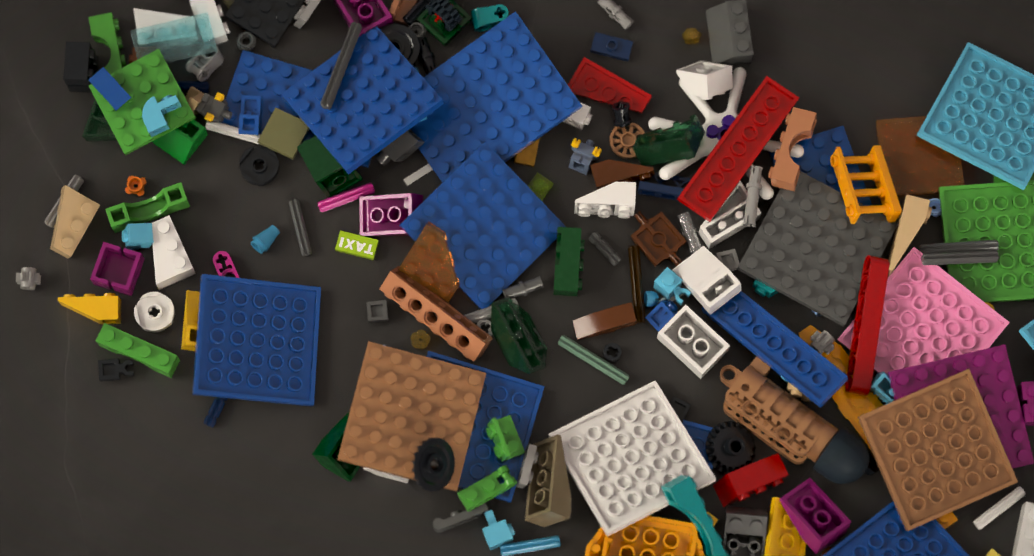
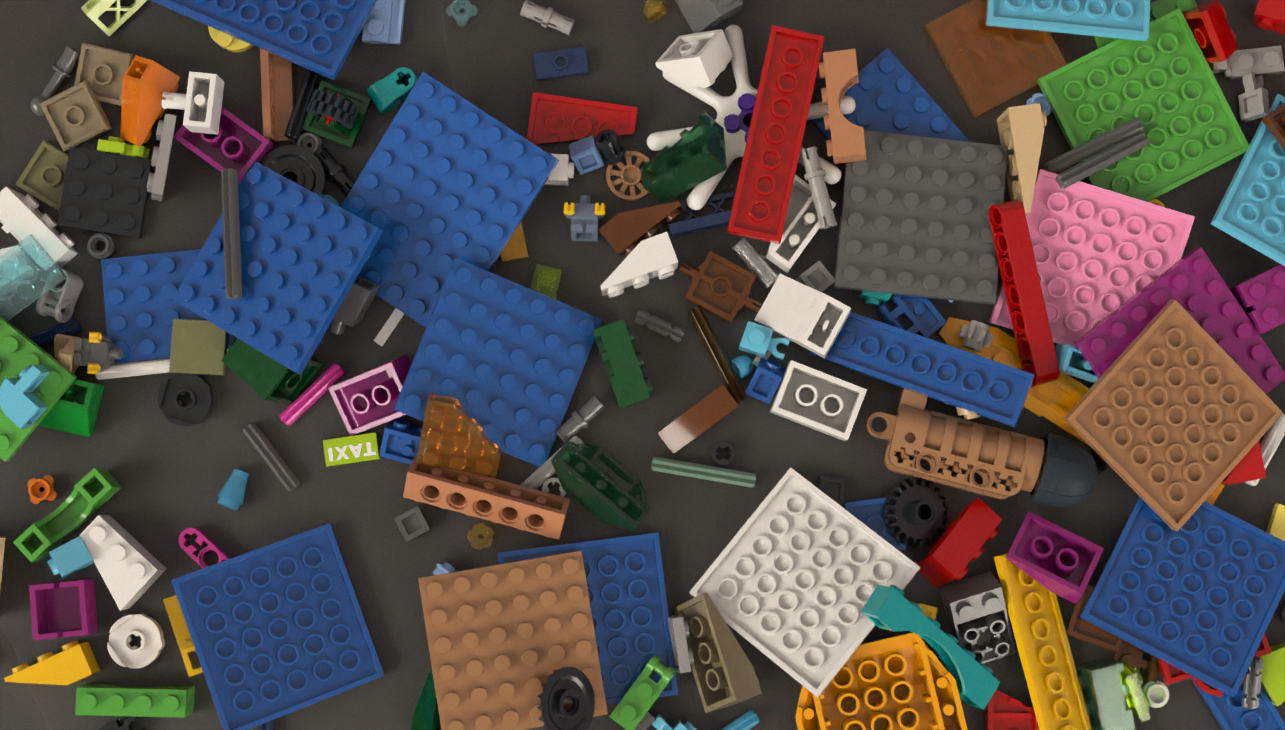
camera: 25 degrees left, 10 degrees up
(250, 115) = (146, 341): blue slope -> none
(393, 252) = (401, 440): none -> blue bracket
(505, 438) = (640, 621): bright green bracket -> none
(602, 114) = (586, 155): none -> medium blue slope
(789, 309) = (918, 311): none -> blue plate
(879, 174) = (967, 99): light orange fence -> none
(978, 511) = (1248, 469): none -> red slope

